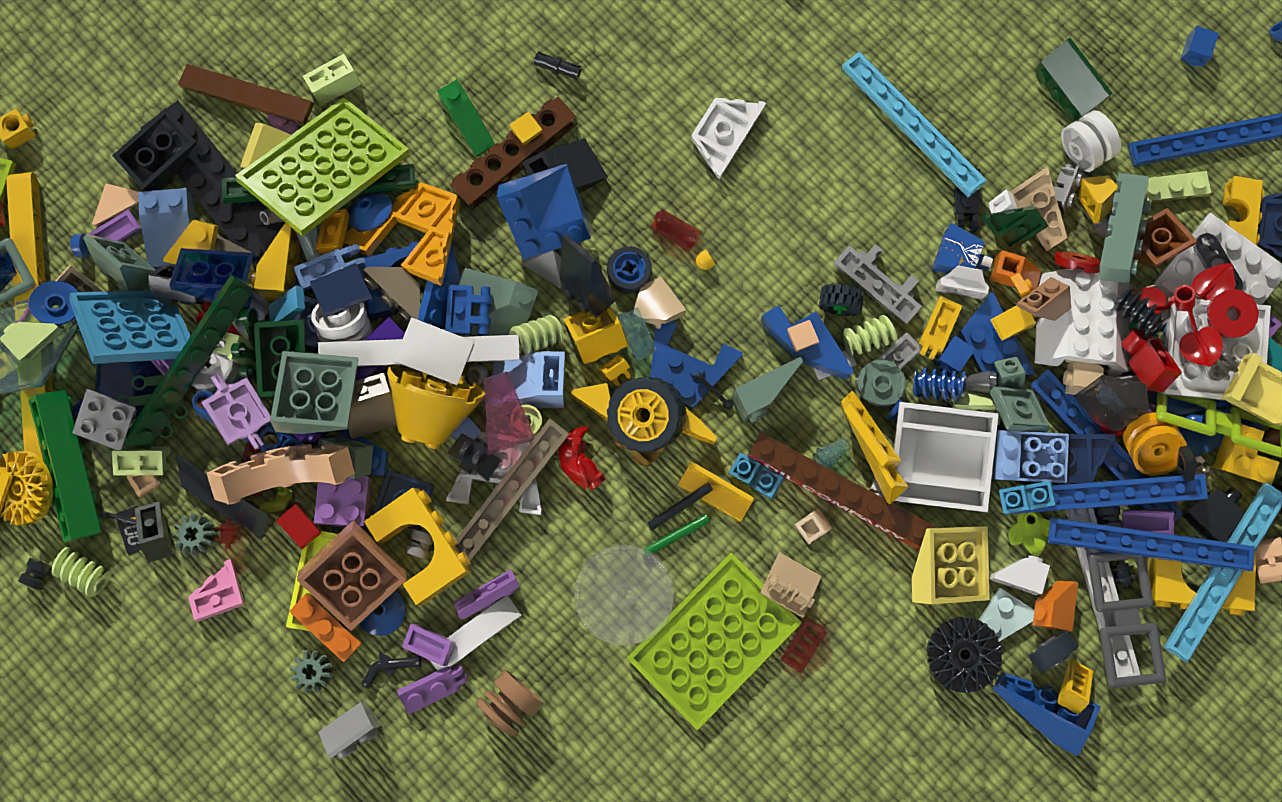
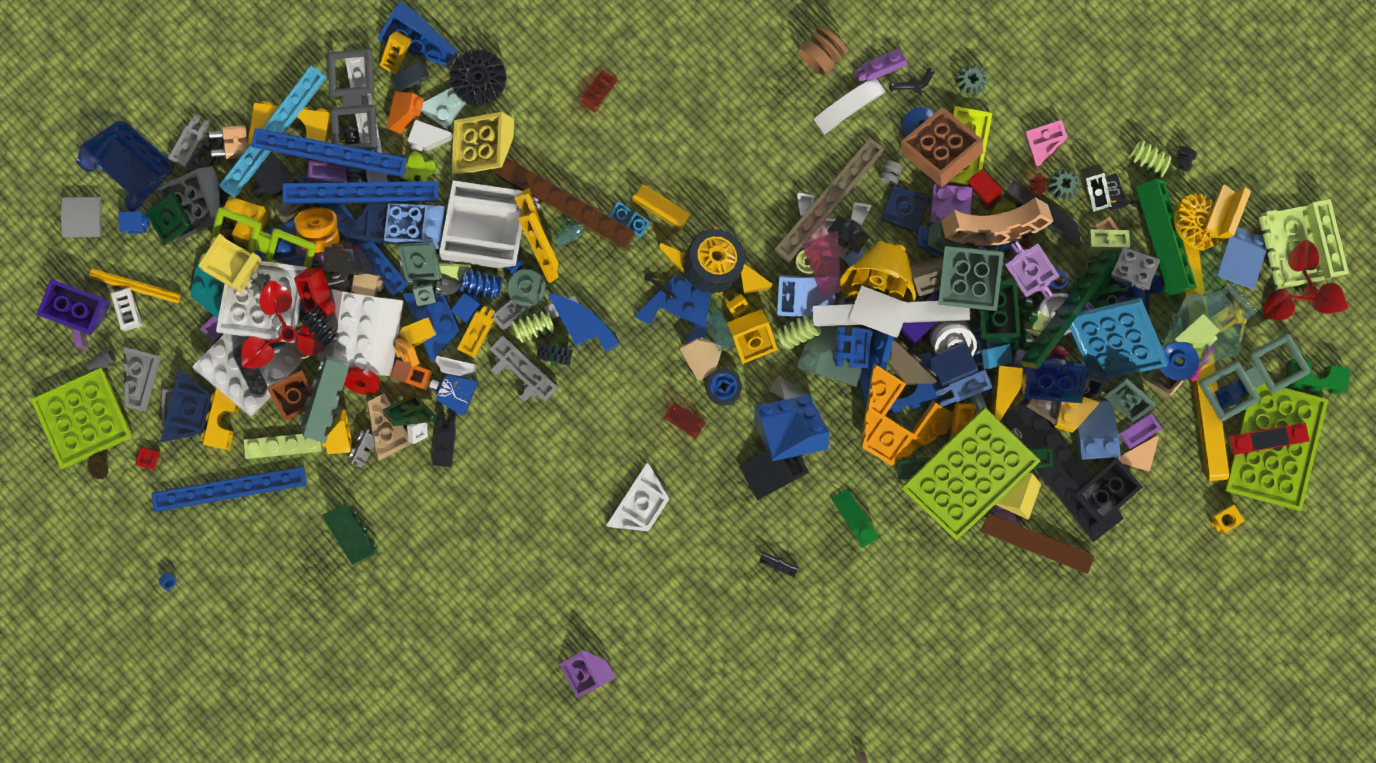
camera: 170 degrees left, 5 degrees up
(79, 246) = (1166, 418): blue tile -> none
(325, 627) = (961, 109): orange plate -> none
(332, 80) = (967, 555): yellowish green hinge -> none
(345, 732) = (942, 35): light grey slope -> none
(370, 211) = (928, 435): blue dish -> none
(429, 644) = (883, 97): medium lavender tile -> none
(447, 563) = (893, 194): yellow arch -> none
(473, 195) = (850, 452): reddish brown brick -> none
(486, 594) = (839, 133): medium lavender hinge -> none
(526, 128) = (805, 502): yellow tile -> none
(576, 464) = (770, 231): red animal -> none
(584, 279) = (760, 371): black slope -> none
(624, 595) = (734, 128): clear dish -> none
(678, 534) = (693, 175): green bar -> none
(680, 506) = (689, 196): black bar -> none
(704, 260) = (661, 393): yellow hinge -> none
(714, 641) = (667, 95): lime plate -> none
(758, 394) = (621, 280): sand green slope -> none
(791, 585) = (606, 133): tan hinge -> none
(802, 335) = (587, 323): light nougat tile -> none
(813, 526) = (585, 180): tan slope -> none
(914, 124) = (484, 504): medium azure tile -> none
(1027, 497) = (420, 191): dark azure slope -> none
(1048, 300) = (393, 341): medium nougat slope -> none
(1091, 140) = (340, 481): white wheel -> none
(1186, 463) = (297, 209): black tile -> none
(1199, 46) = (238, 566): blue brick -> none
(1242, 303) = (245, 313): red tile -> none

